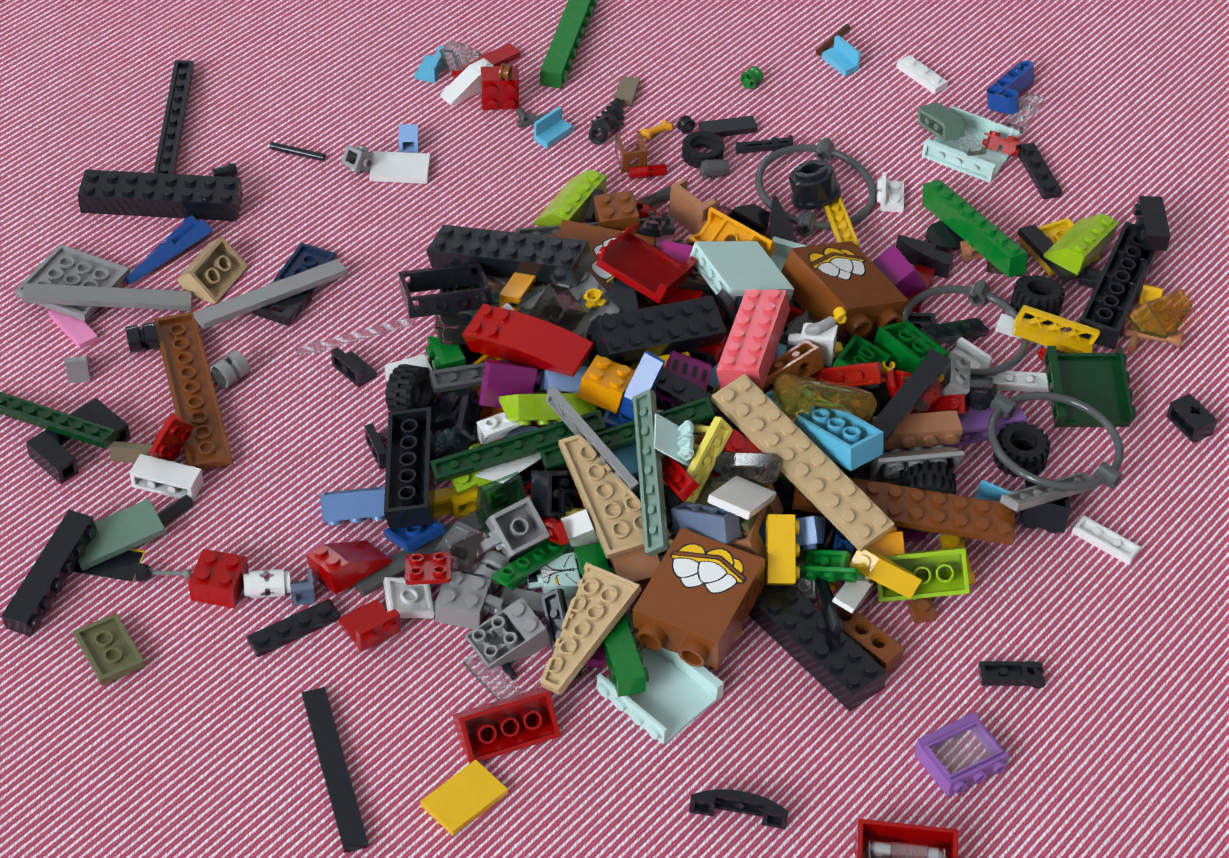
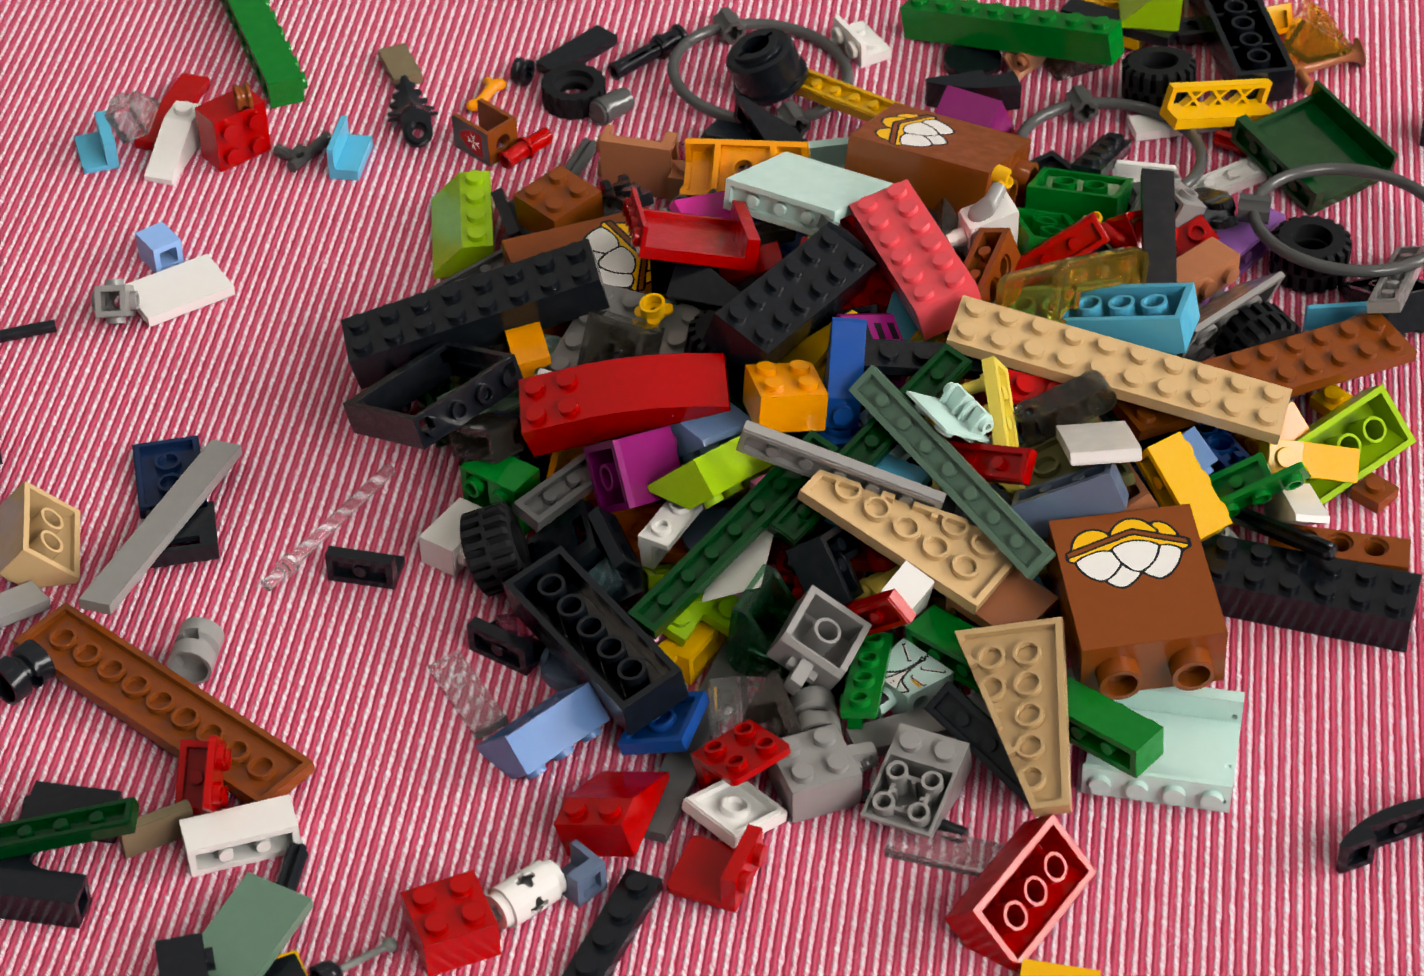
camera: 30 degrees left, 5 degrees down
(339, 463) = (468, 694): none -> clear tile

